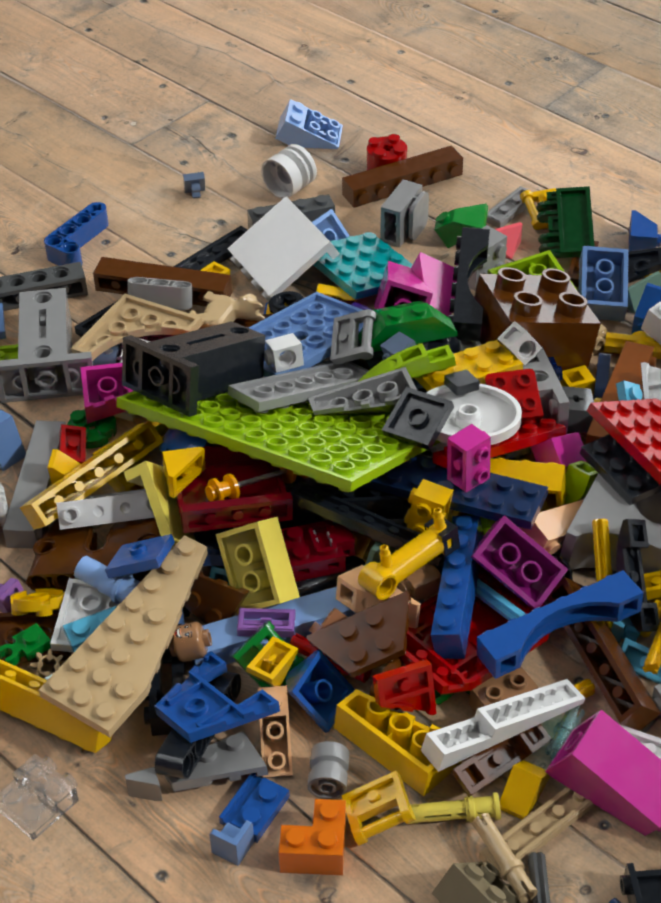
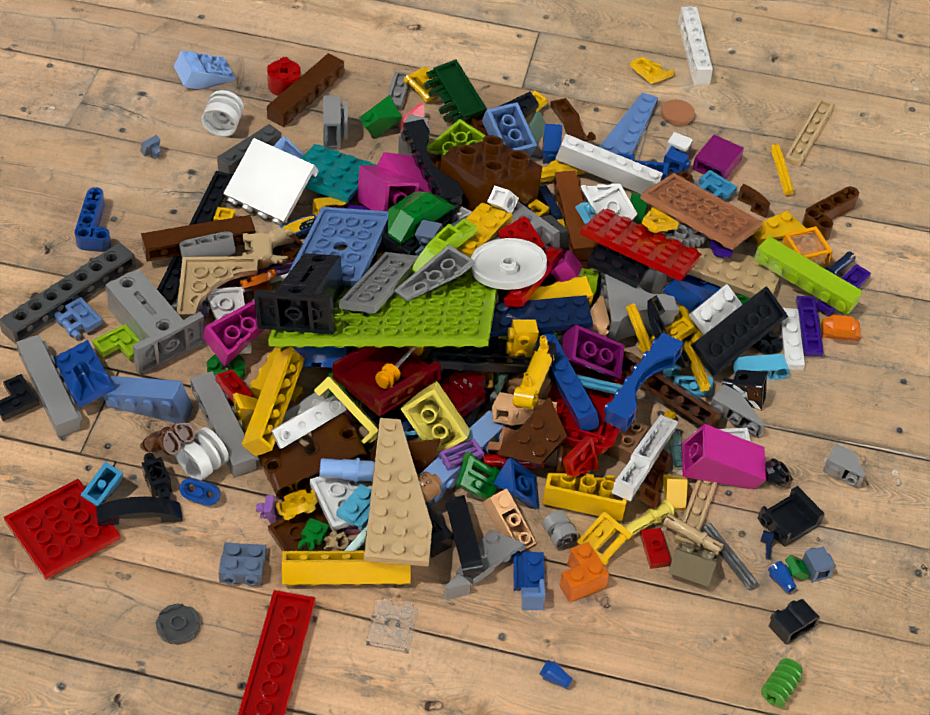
camera: 35 degrees left, 5 degrees up
(140, 556) = (362, 443): blue plate -> none
(182, 468) = (347, 373): yellow slope -> none
(201, 710) = (470, 525): blue wing -> none
(272, 662) = (488, 478): yellow slope -> none
(277, 301) = (300, 217): black gear -> none
(289, 359) = (354, 263): white brick -> none
(345, 337) = (384, 237): light grey plate -> none
(418, 418) = (487, 279): black plate -> none
(444, 850) = (655, 548): none -> red plate
(461, 382) = (489, 242): black tile -> none
(468, 457) = (536, 294): dark pink brick -> none
(642, 233) = (505, 84): blue slope -> none

